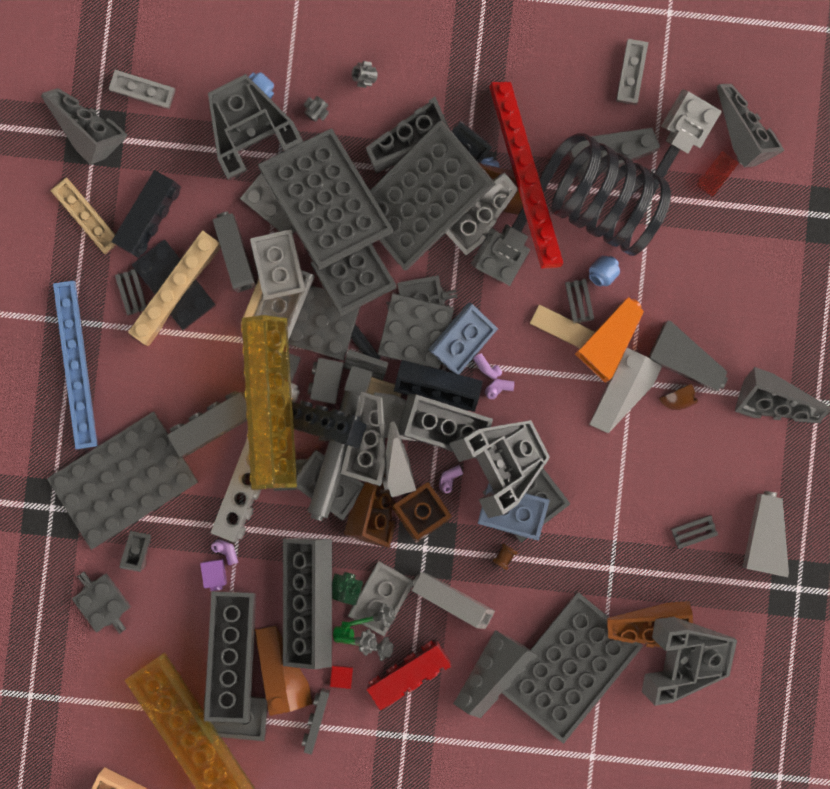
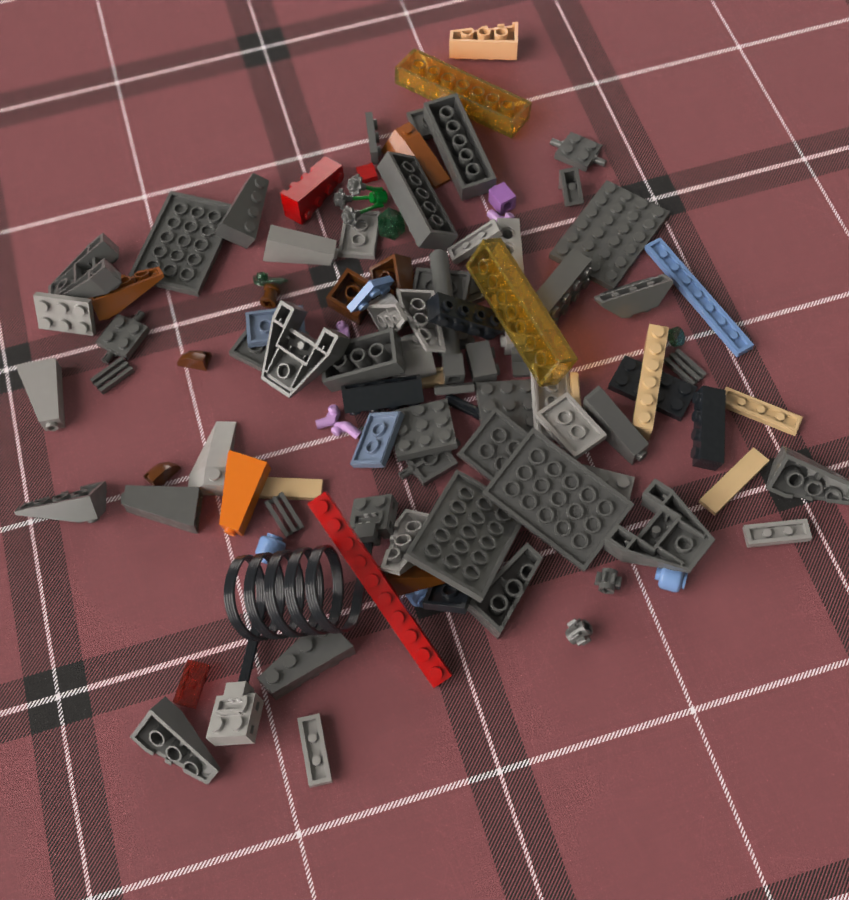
camera: 160 degrees right, 25 degrees down
(122, 326) = (676, 337): none -> clear green tile
(140, 390) = (635, 296): none -> dark grey wedge
(150, 156) = (734, 481): none -> tan tile
(269, 524) = (468, 245): none -> light grey plate
(407, 488) = (372, 289): none -> medium blue plate
(499, 575) = (262, 278): none -> plate
(605, 514) = (195, 359): none -> reddish brown brick
(670, 574) = (122, 336): none -> dark grey plate
(723, 620) = (64, 313): none -> light grey plate

